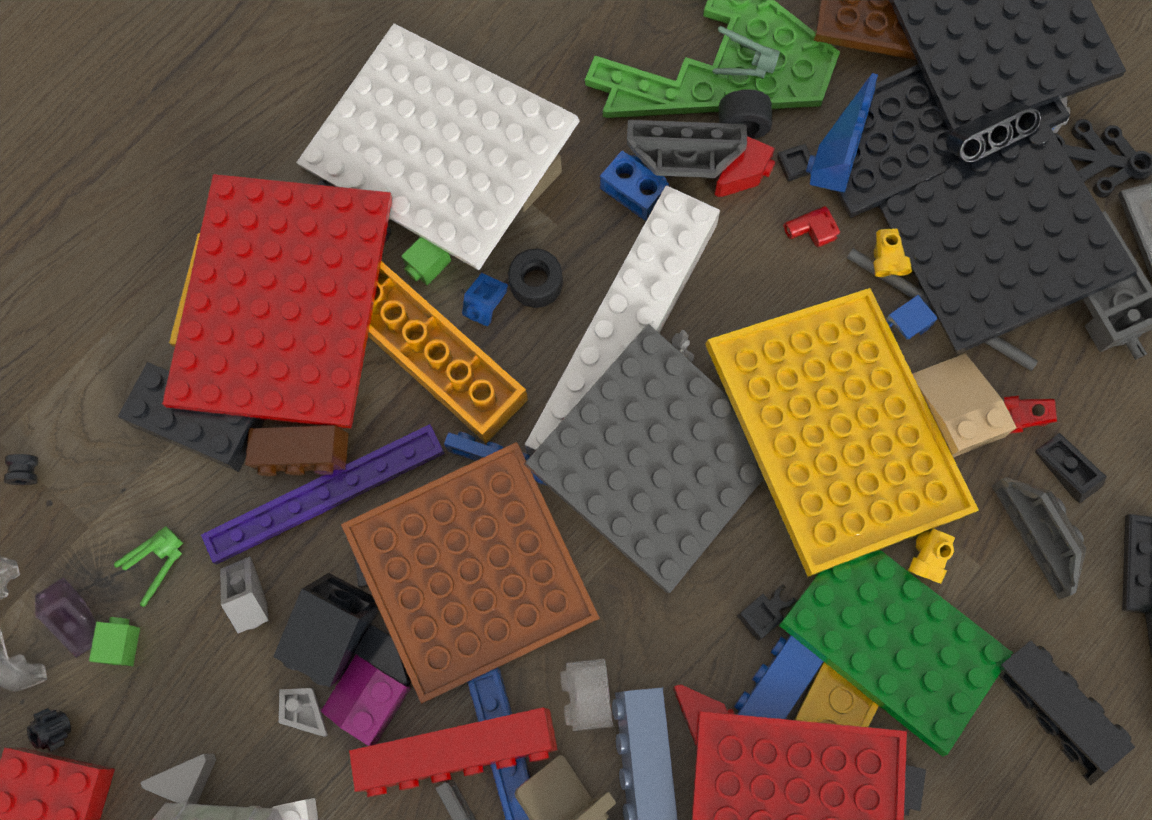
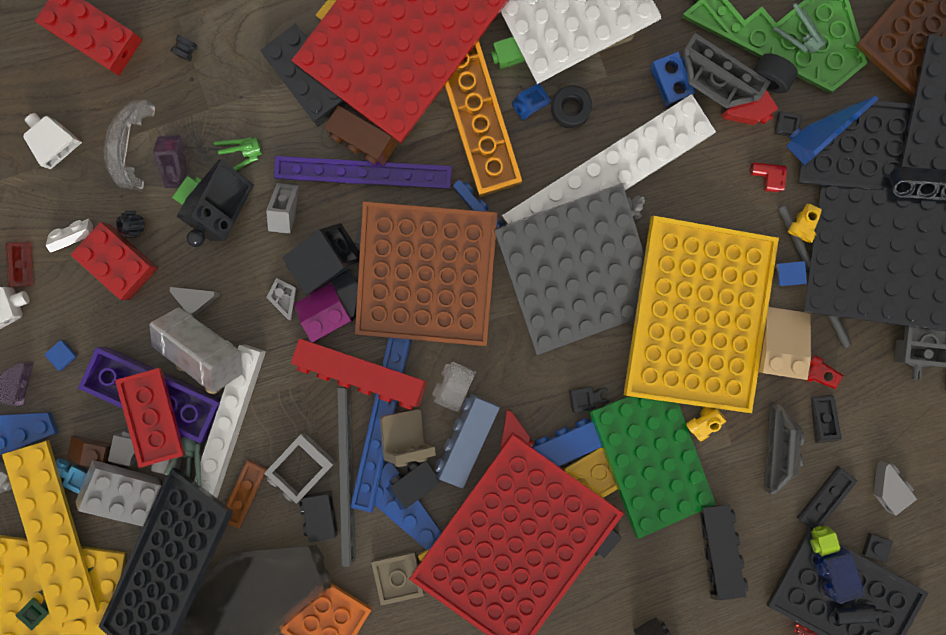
camera: 25 degrees right, 15 degrees up
(150, 638) = (217, 197): none -> black slope

